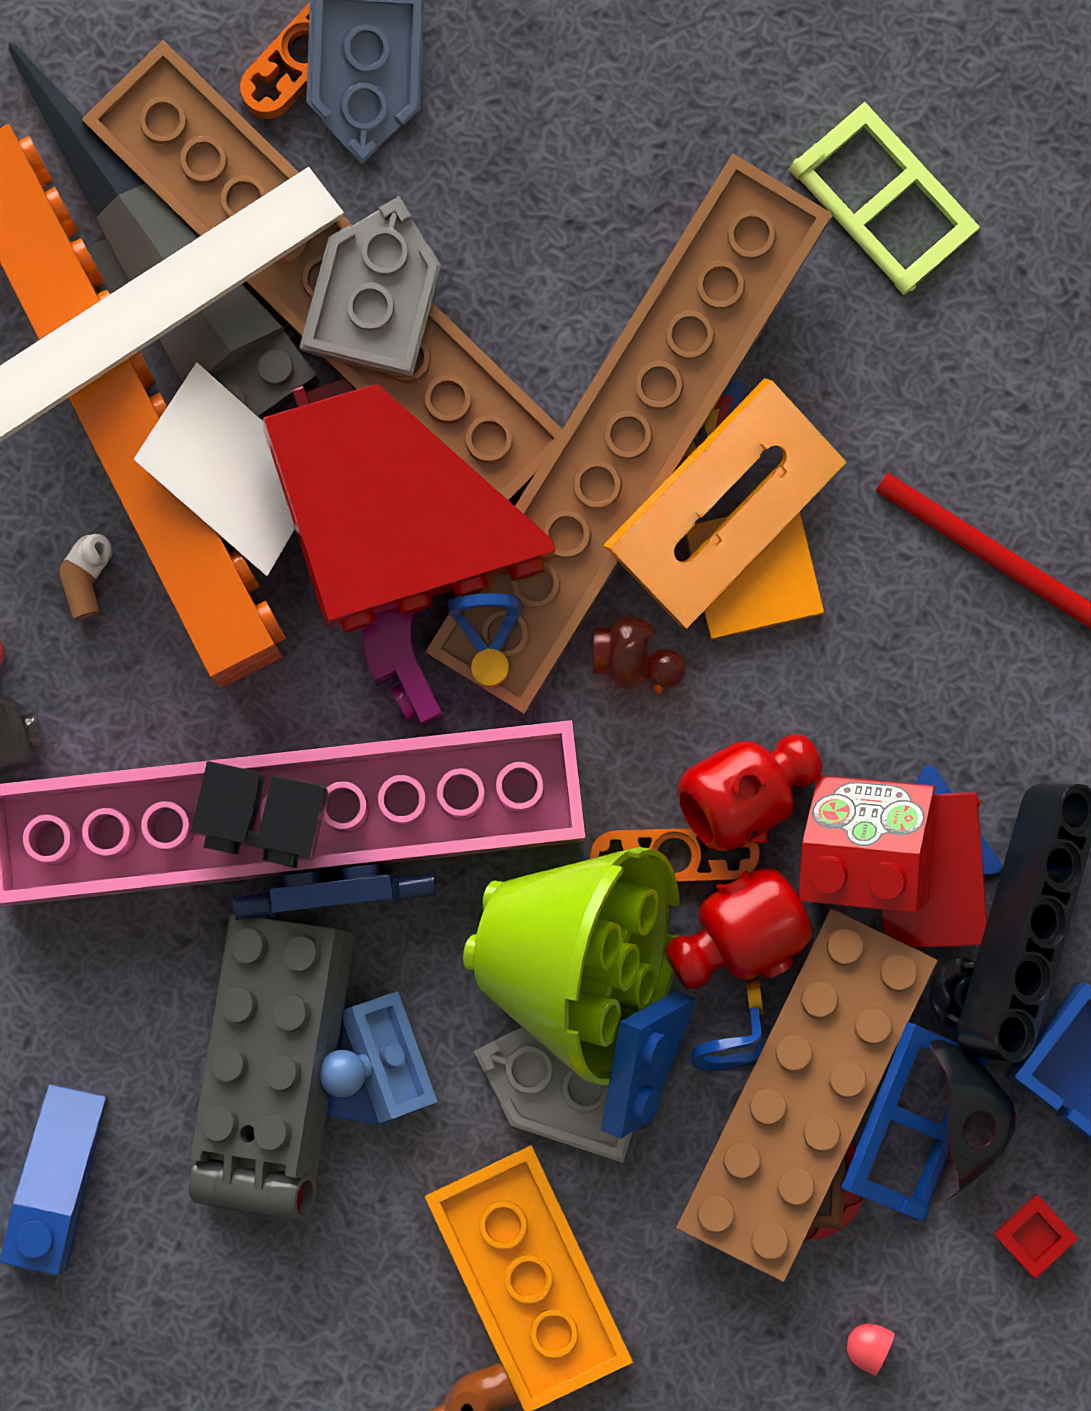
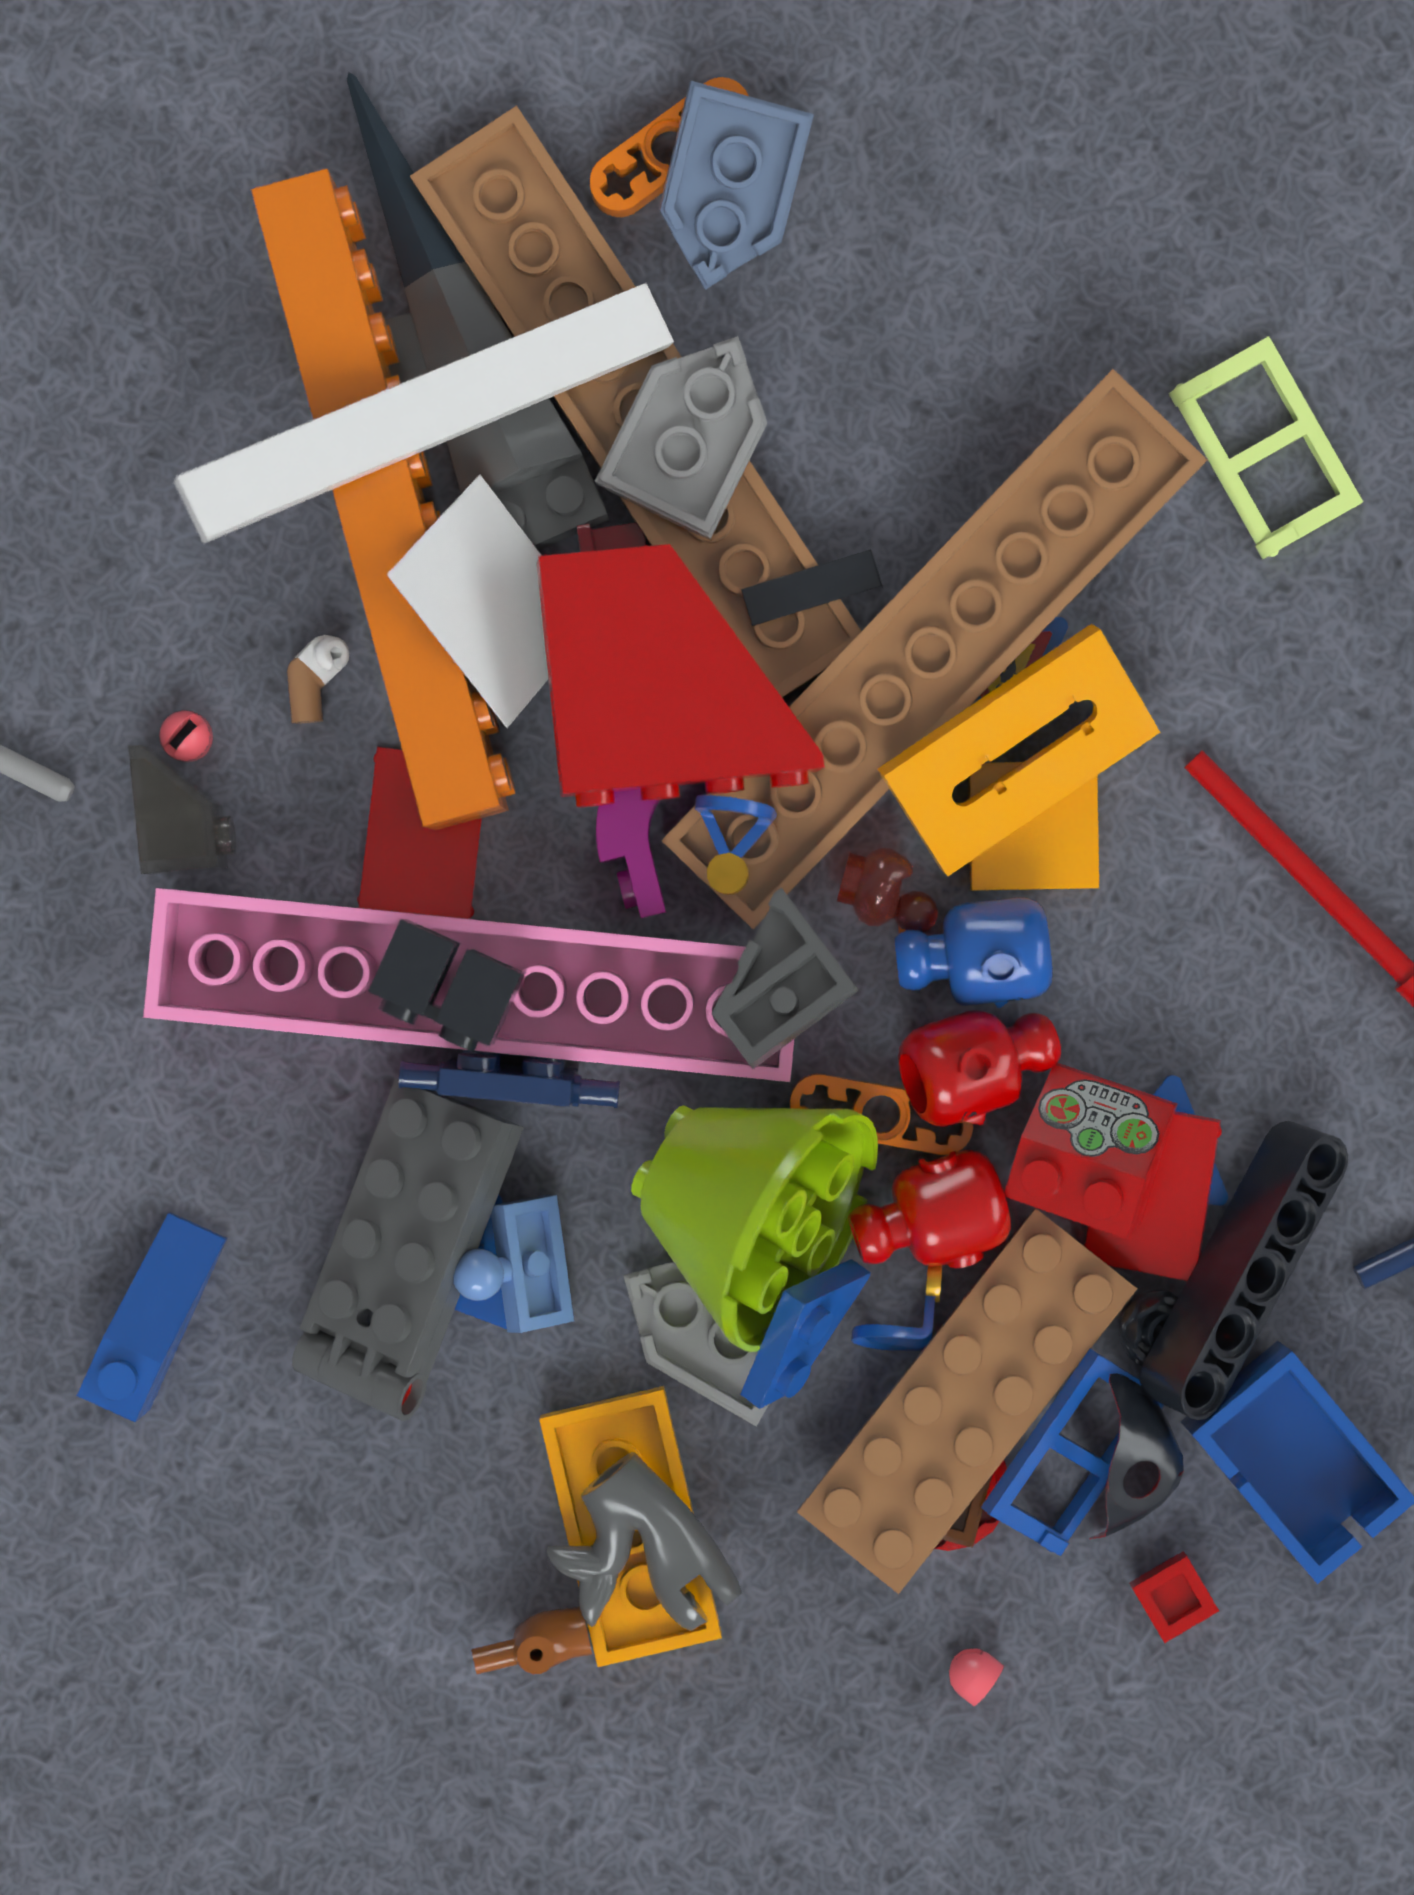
camera: 15 degrees right, 5 degrees up
(197, 714) = (410, 864): none -> red piece
(510, 401) = (812, 587): none -> black piece
(558, 750) = (780, 985): none -> dark grey wing
(568, 1275) = (674, 1543): none -> dark grey piece
(734, 687) = (987, 952): none -> blue piece

